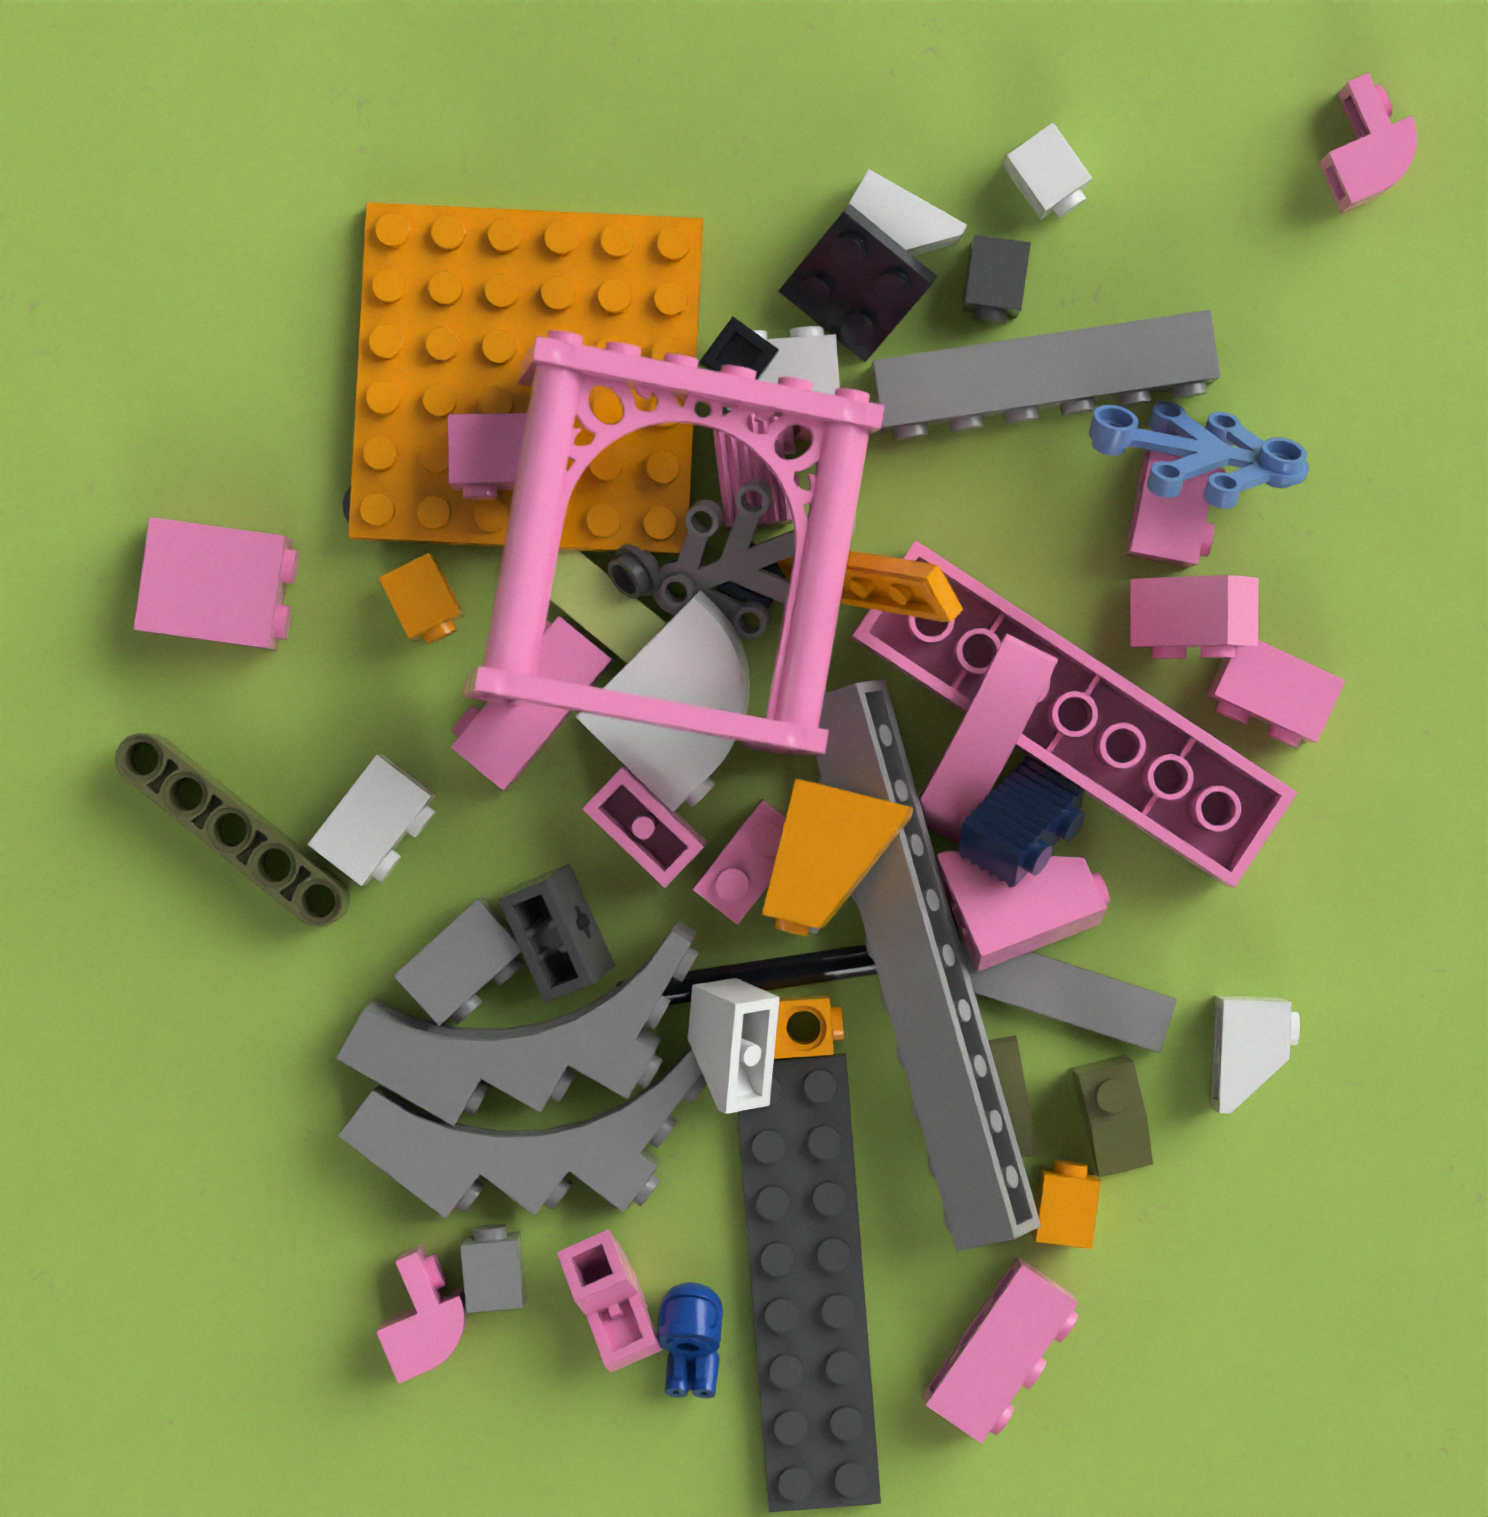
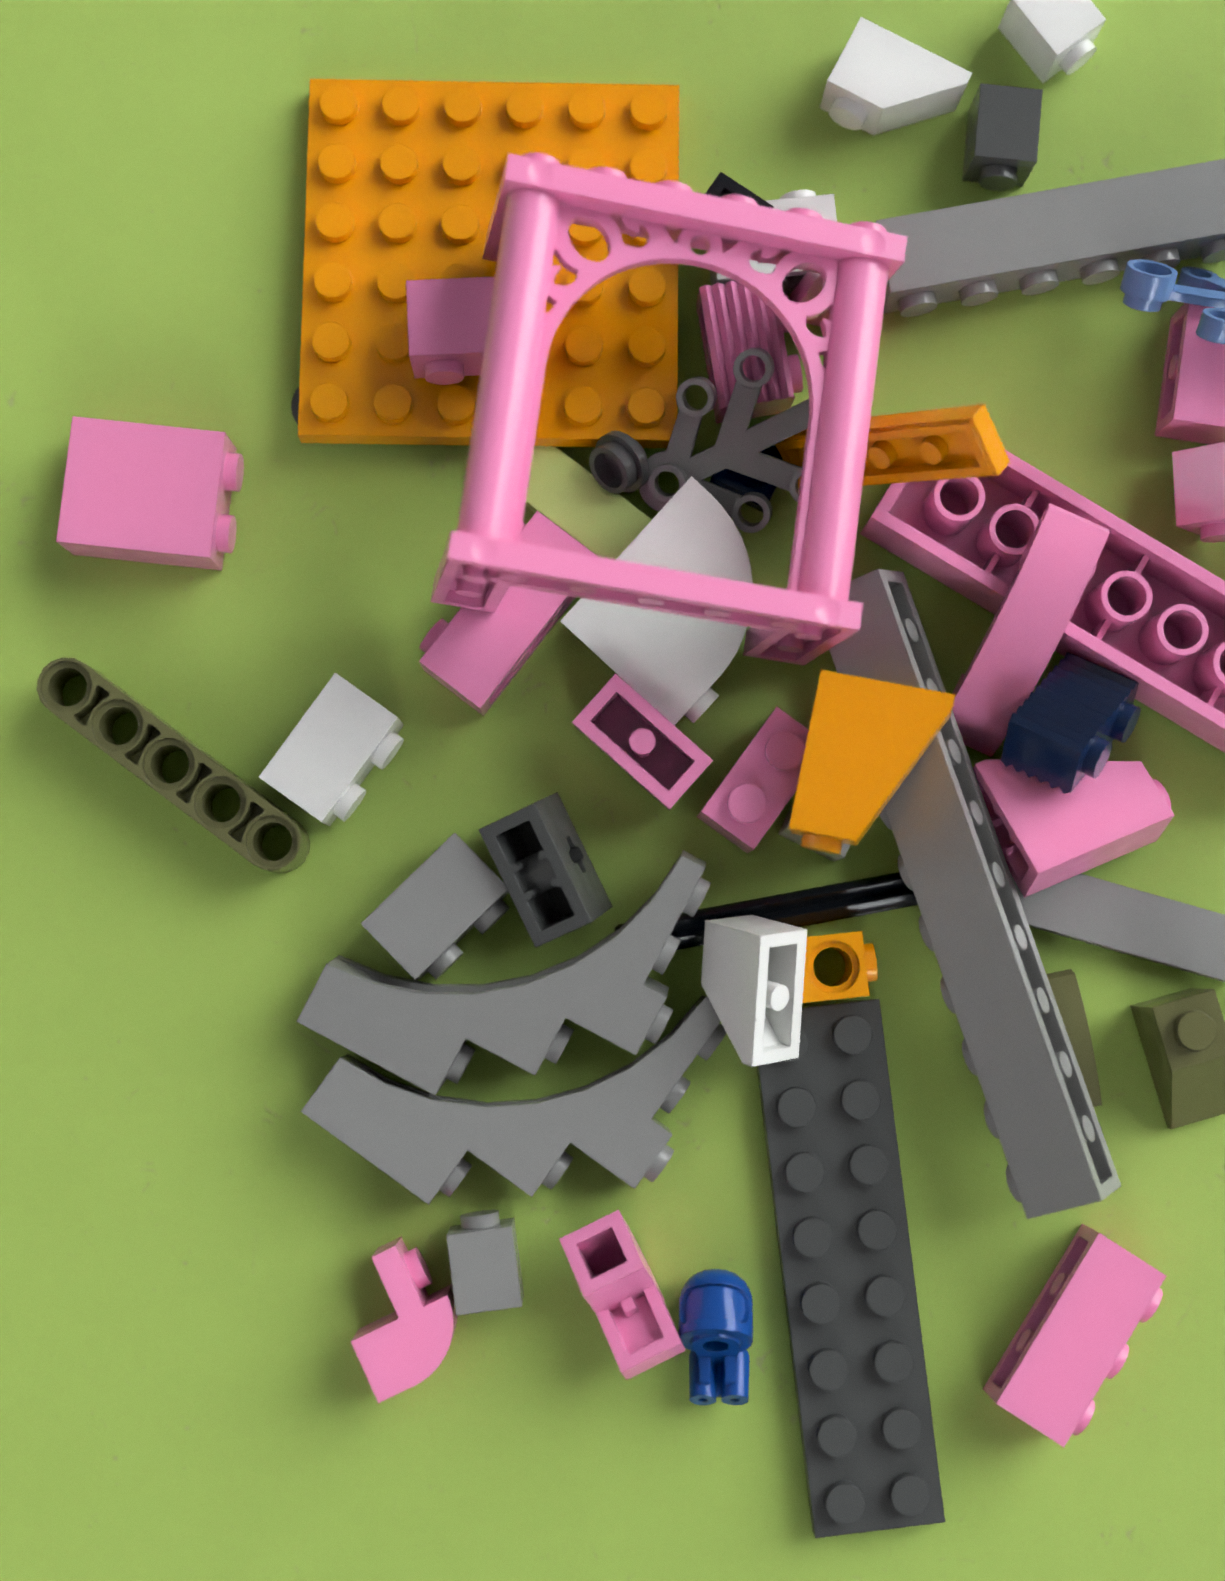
camera: 10 degrees left, 5 degrees down
(422, 599) = (383, 502): light orange brick -> none
(857, 283) = (854, 139): black plate -> none
(1066, 1204) = (1145, 1161): light orange brick -> none

